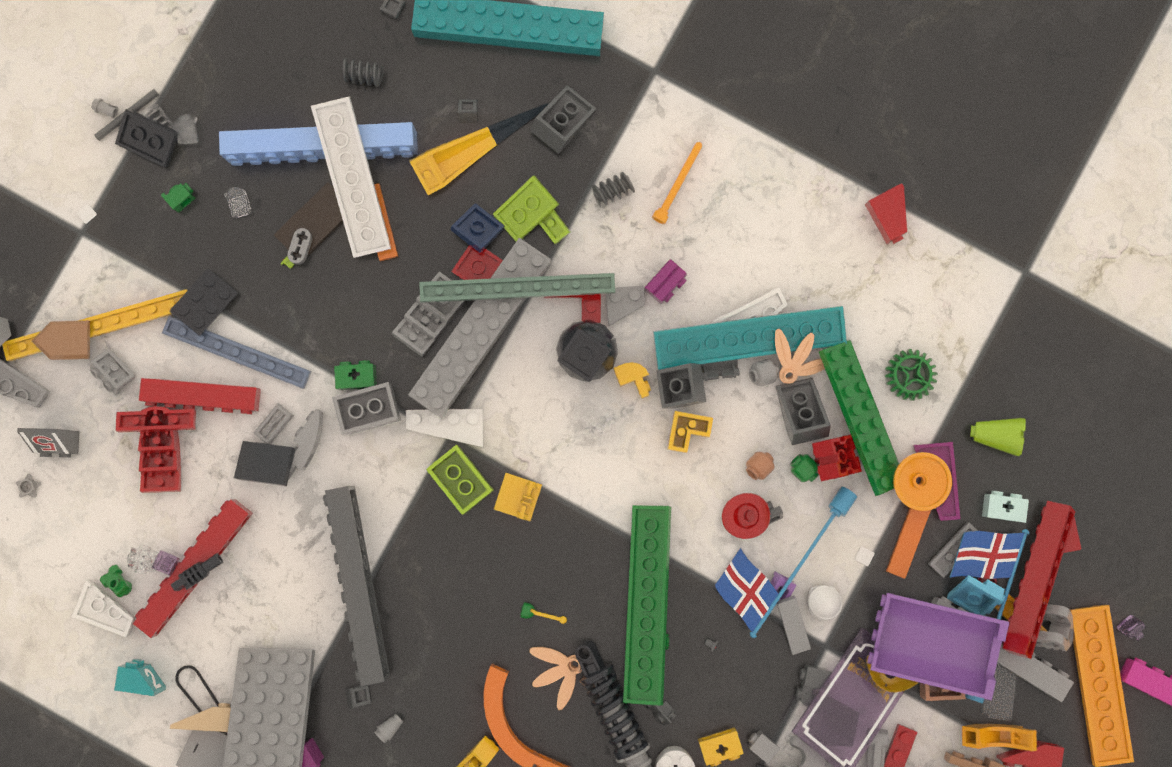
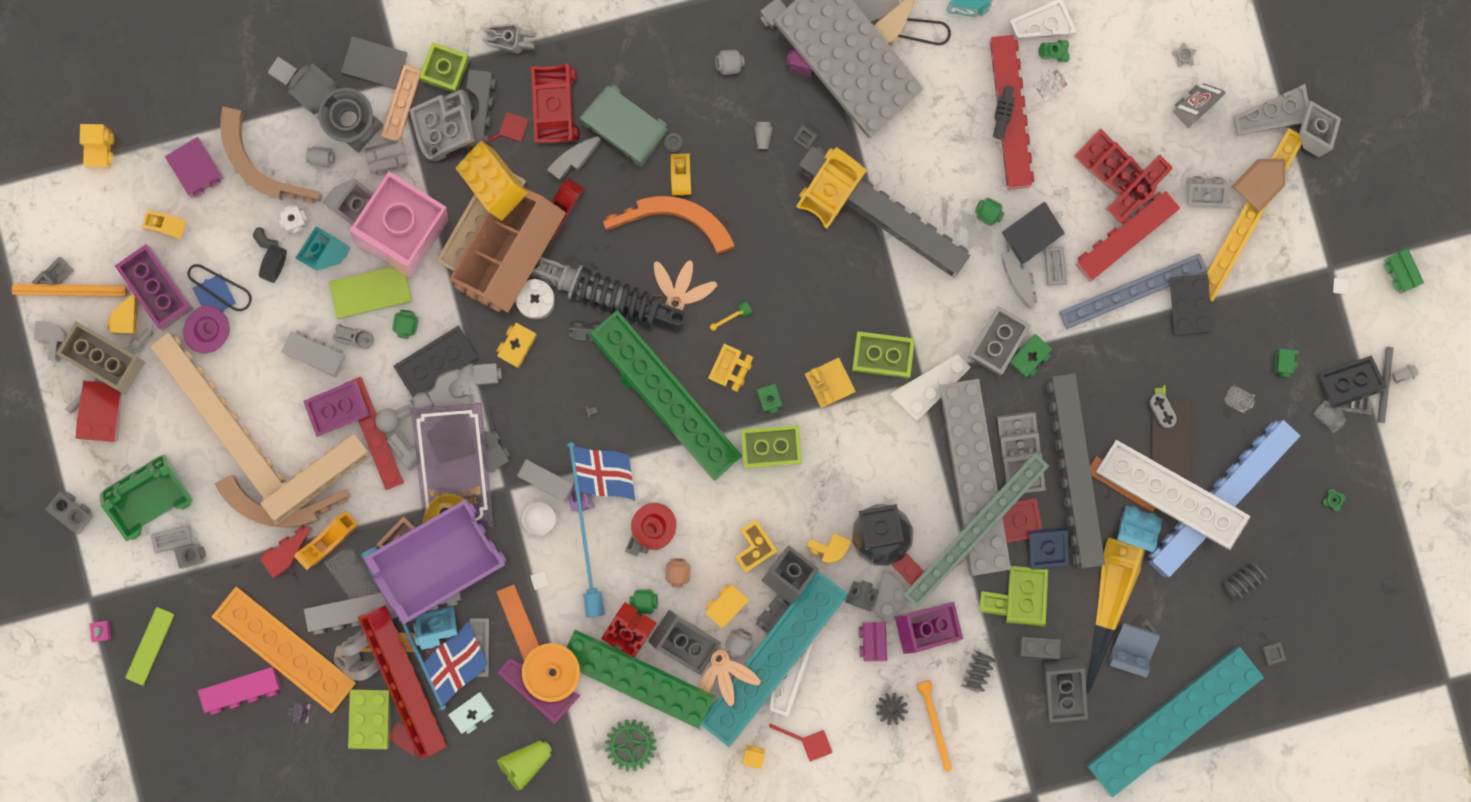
camera: 130 degrees right, 0 degrees up
(31, 180) = (1403, 271): none -> green brick
(165, 563) = (1032, 97): clear purple tile -> none
(239, 66) = (1339, 500): none -> green plate
(280, 509) = (989, 211): none -> green head
(375, 641) = (831, 186): none -> yellow piece
(399, 179) = (1139, 528): none -> medium azure plate
(404, 262) = (1075, 471): none -> dark grey brick
(488, 99) = (1133, 650): none -> sand blue bracket
(552, 165) = (1039, 647): none -> dark grey piece
(573, 527) = (769, 399): none -> green brick
(581, 583) = (725, 365): none -> yellow plate
(606, 491) = (771, 447): none -> lime brick
(618, 254) = (928, 628): none -> magenta slope
(643, 321) = (862, 595): none -> dark grey brick
(706, 225) = (887, 713): none -> black gear
(749, 407) = (726, 605): none -> yellow brick
(777, 250) = (815, 745): none -> piece
(830, 282) = (753, 756): none -> yellow brick
(1085, 574) = (369, 719): none -> lime brick

